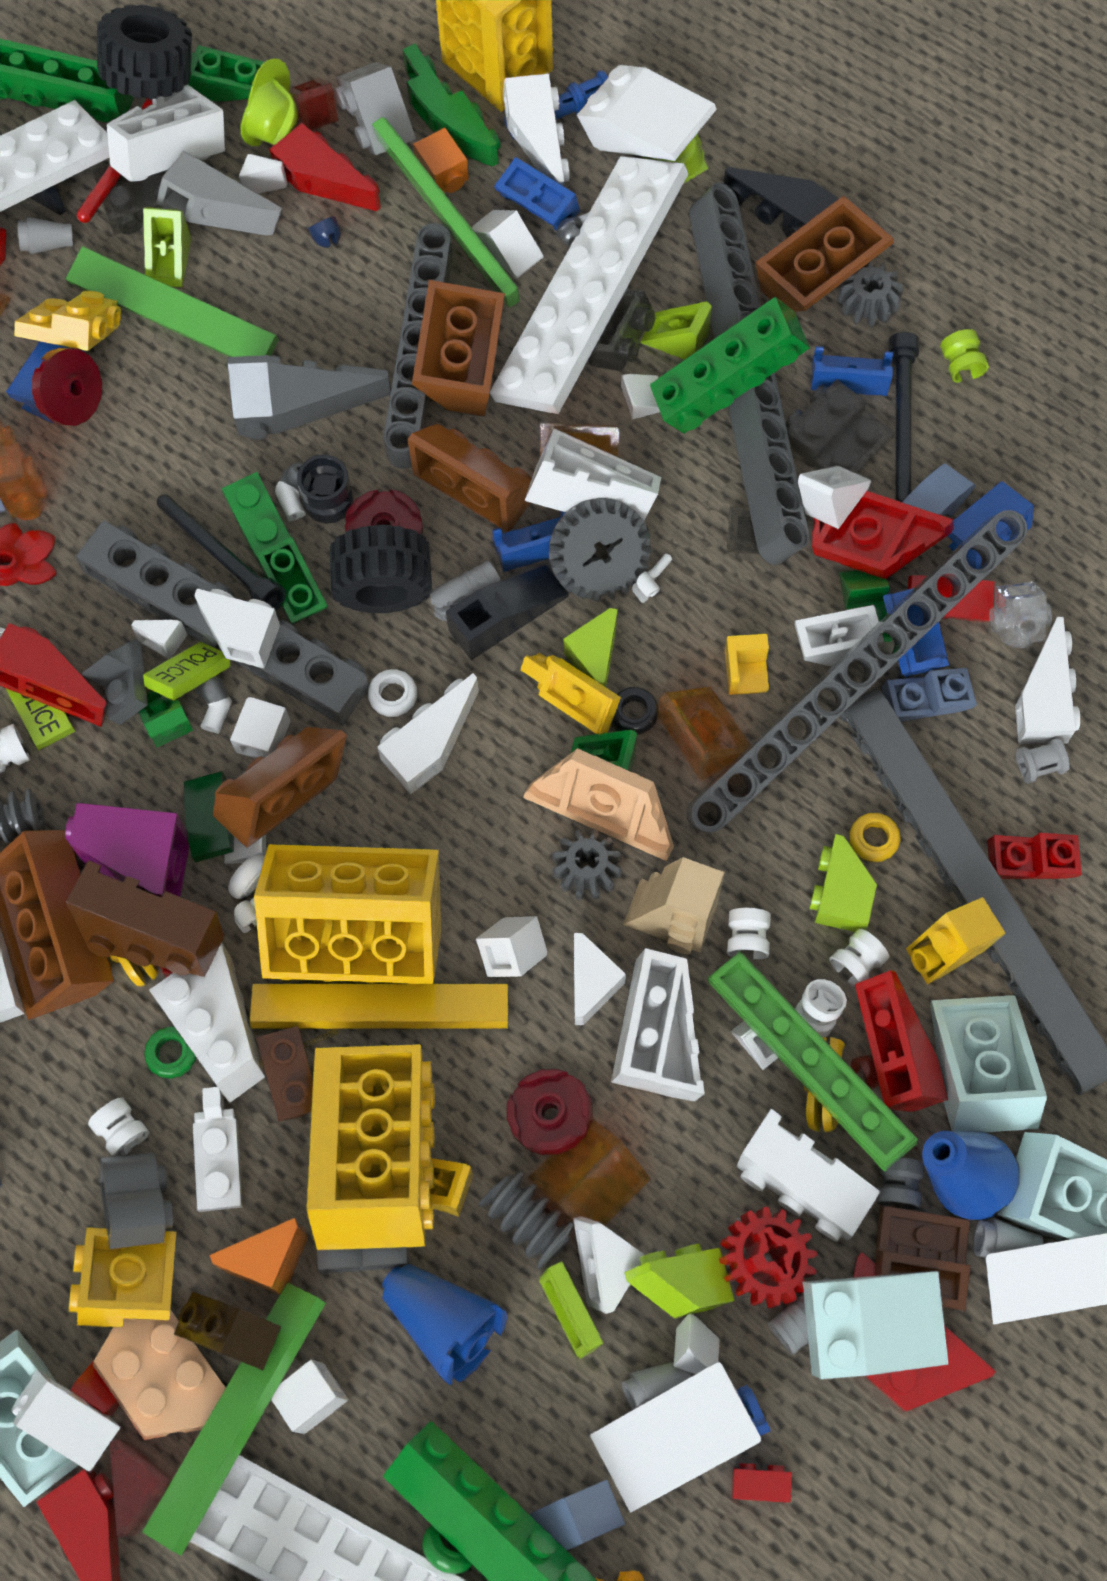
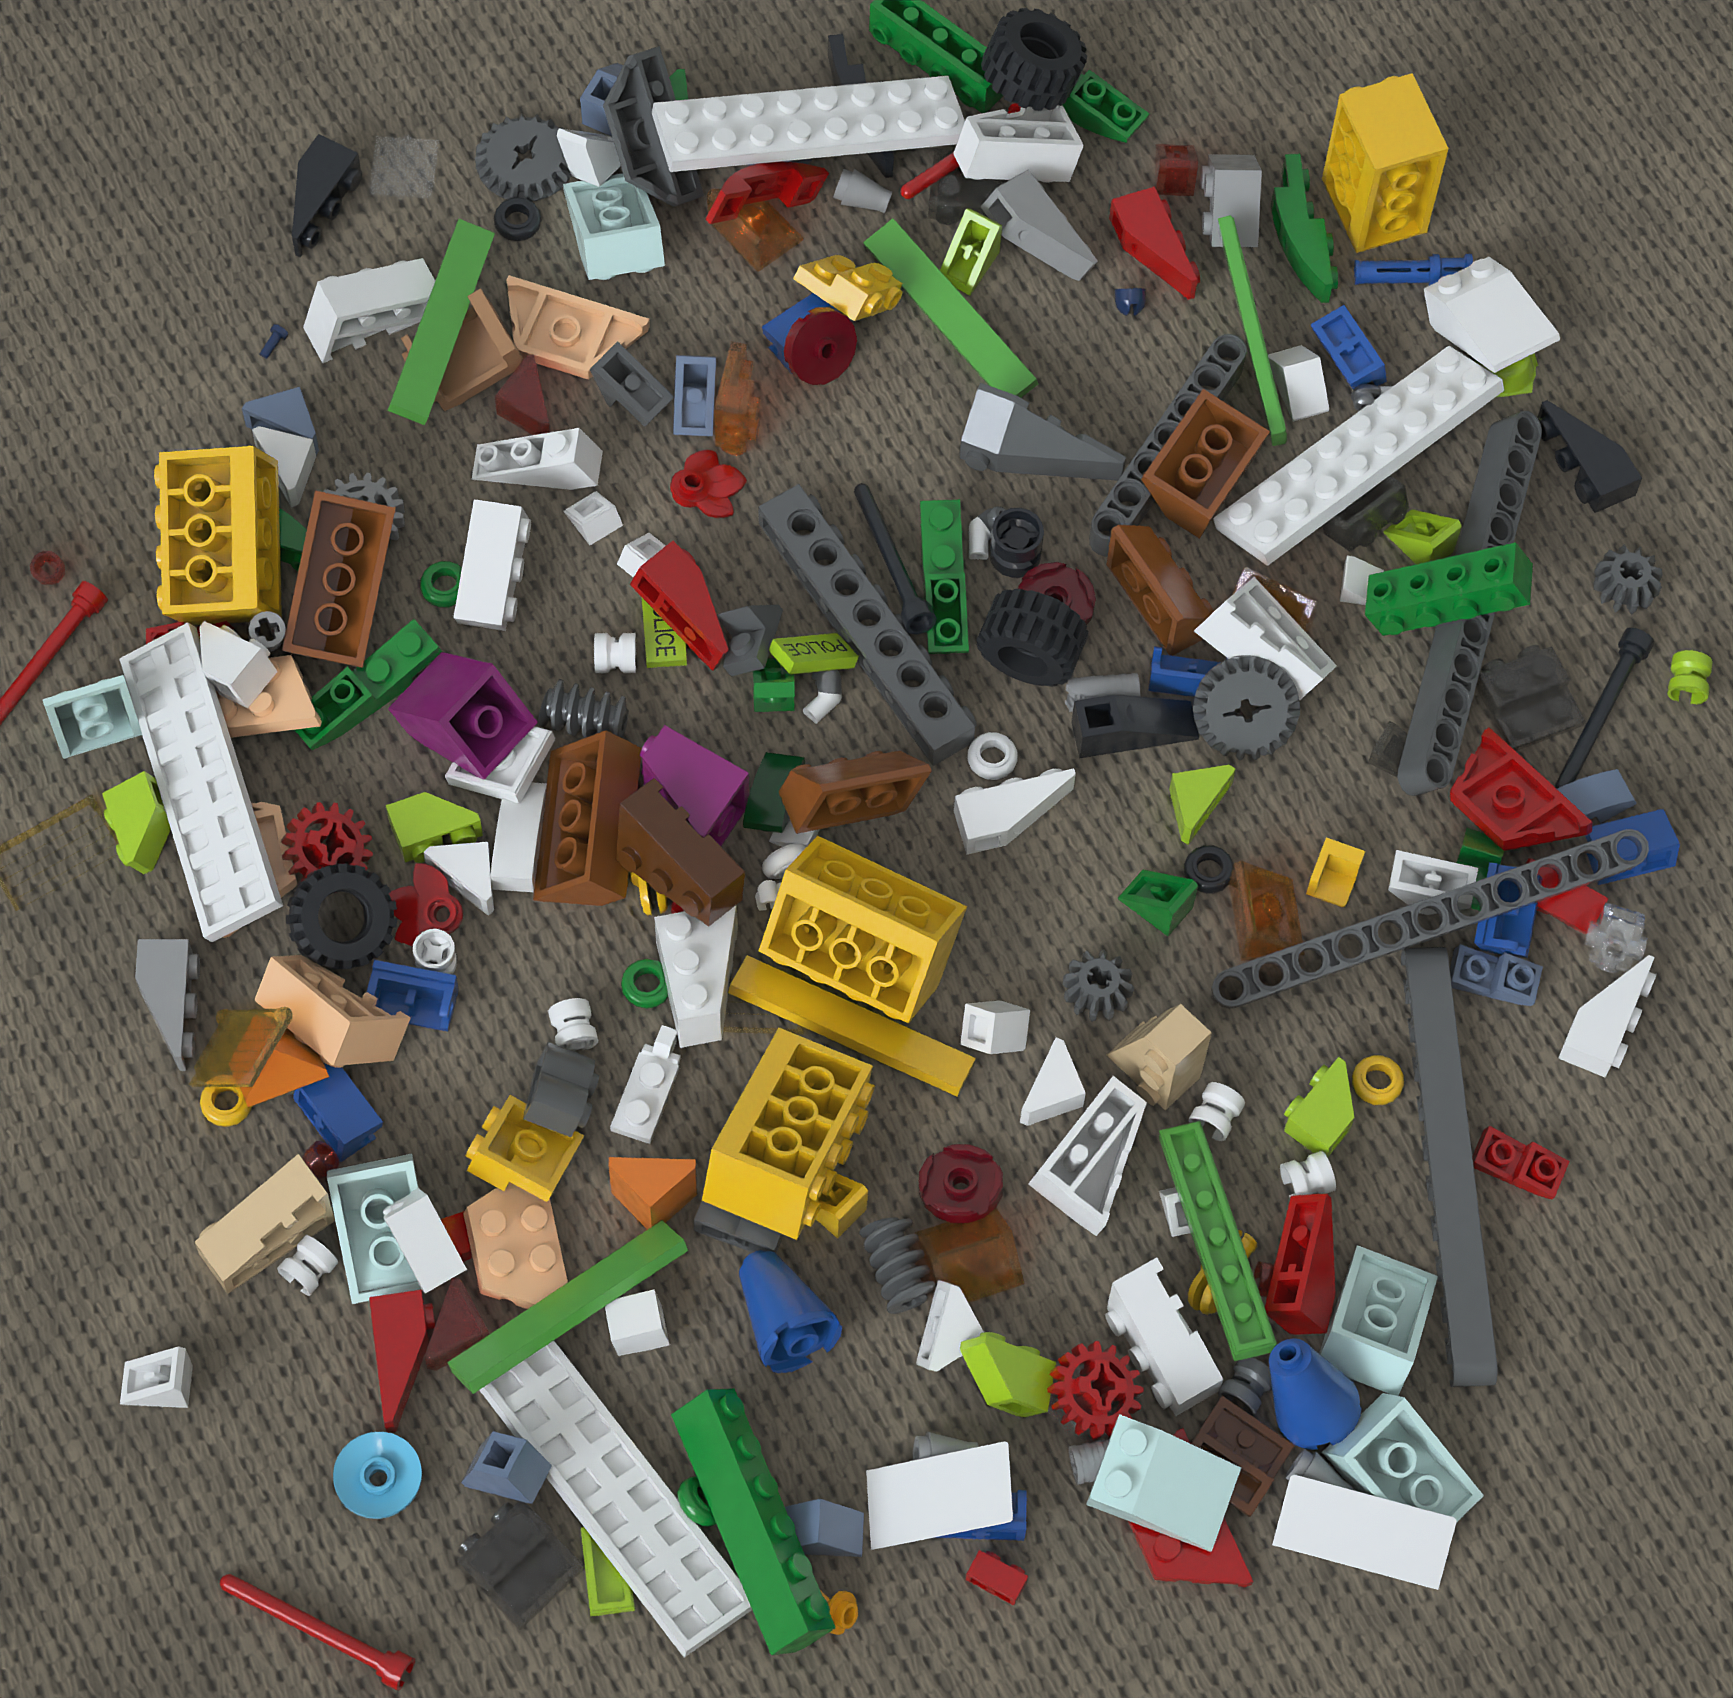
camera: 20 degrees right, 5 degrees down
(160, 635) = (803, 611): white slope -> none
(227, 1330) = (593, 1231): dark brown brick -> none
(240, 627) = (879, 634): white slope -> none
(259, 728) = (856, 733): white panel -> none
(262, 174) = (1094, 220): white slope -> none
(270, 106) = (1132, 158): lime piece -> none
(287, 1072) = (742, 1043): reddish brown hinge -> none
(442, 160) = (1272, 279): orange brick -> none
(532, 122) = (1376, 280): white slope -> none
(570, 1310) = (898, 1356): lime tile -> none
(572, 691) = (1158, 825): yellow hinge -> none
(605, 800) = (1142, 934): light nougat wing -> none
(645, 583) = (1276, 758): white hand -> none
(695, 1346) = (995, 1428): white slope -> none
(821, 255) = (1592, 522): dark orange slope -> none
(822, 1005) = (1251, 1201): white wheel -> none
(831, 493) = (1491, 749): white slope -> none
(858, 374) = (1572, 647): blue hinge -> none
(955, 940) = (1402, 1198): yellow slope -> none
(1042, 760) = (1570, 1080): light grey bush -> none

